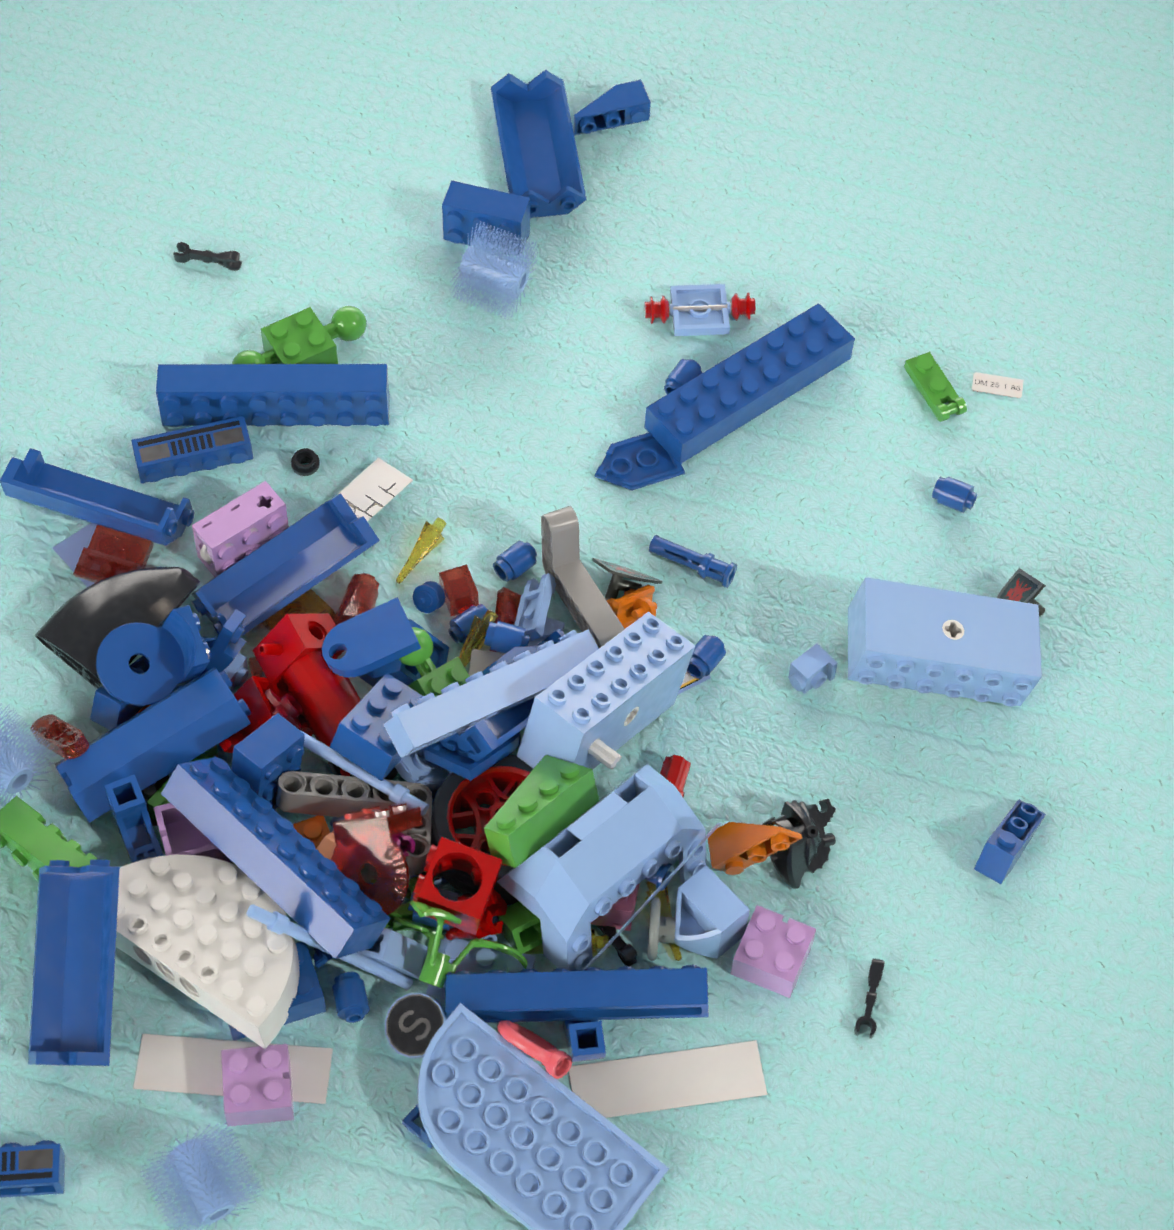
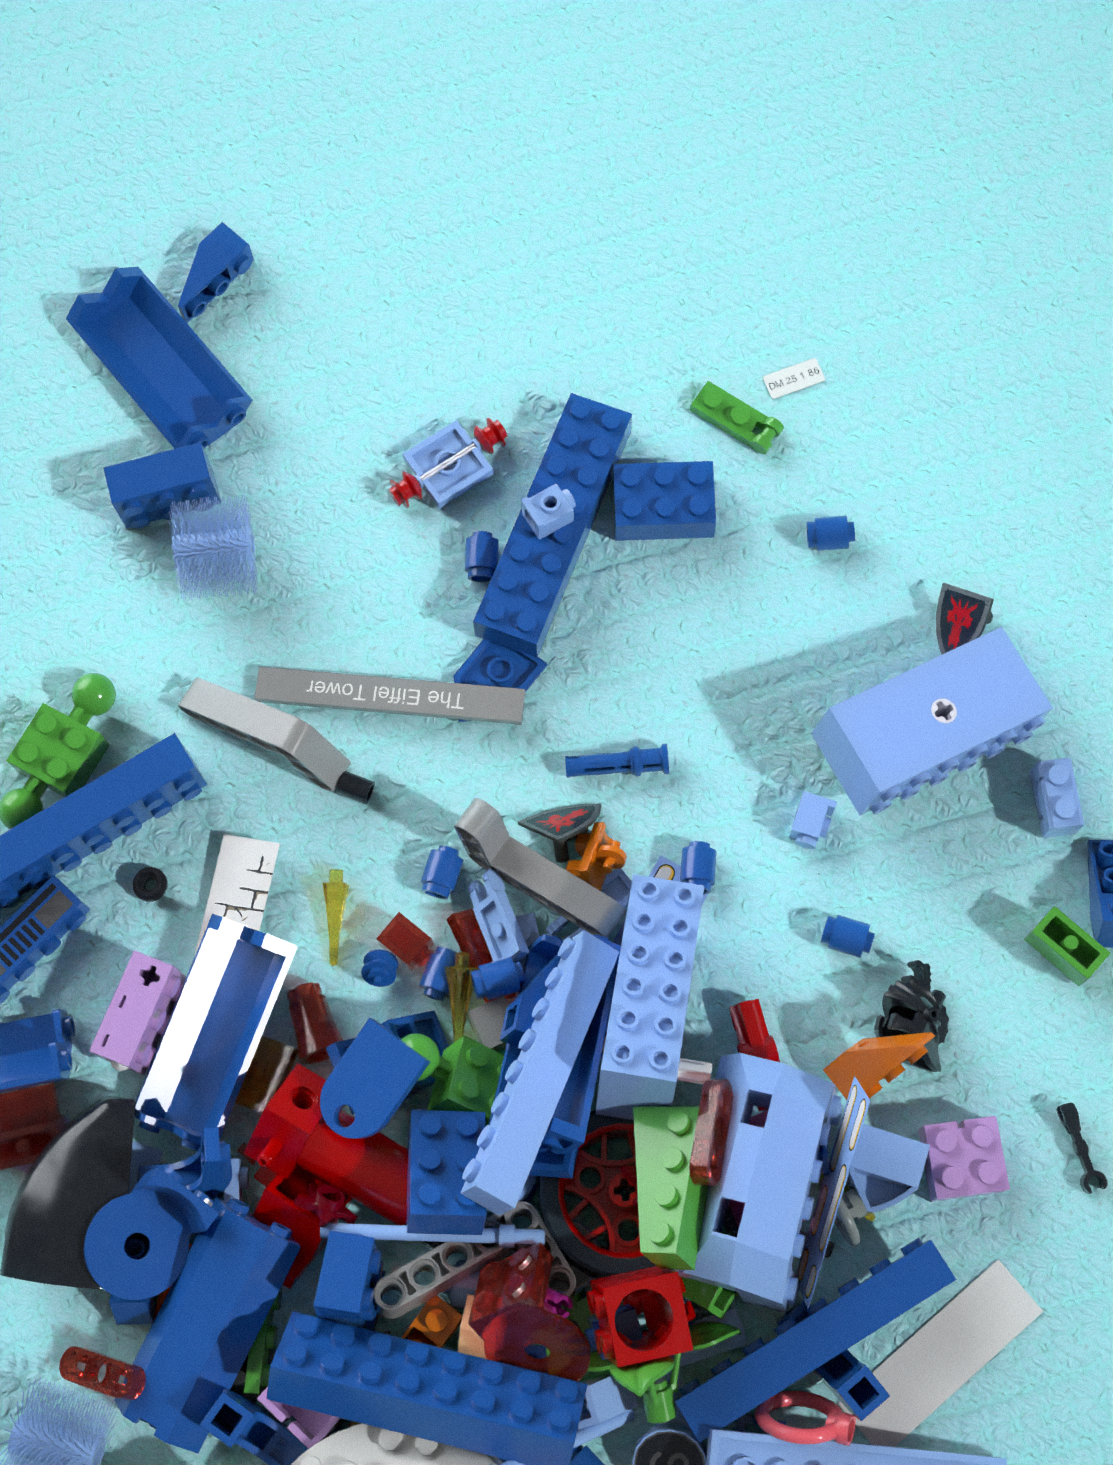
camera: 25 degrees left, 15 degrees up
(459, 402) = (268, 729): none -> beam
(491, 477) = (355, 787): none -> black hinge
(557, 432) = (390, 695): none -> light grey tile
(573, 801) = (711, 1132): none -> clear red beam
(748, 361) = (544, 519): none -> light blue brick
(786, 759) = (847, 935): none -> blue brick
(842, 409) = (664, 500): none -> blue brick
(950, 852) = (1067, 946): none -> bright green brick
(1010, 753) = (1056, 797): none -> light blue brick

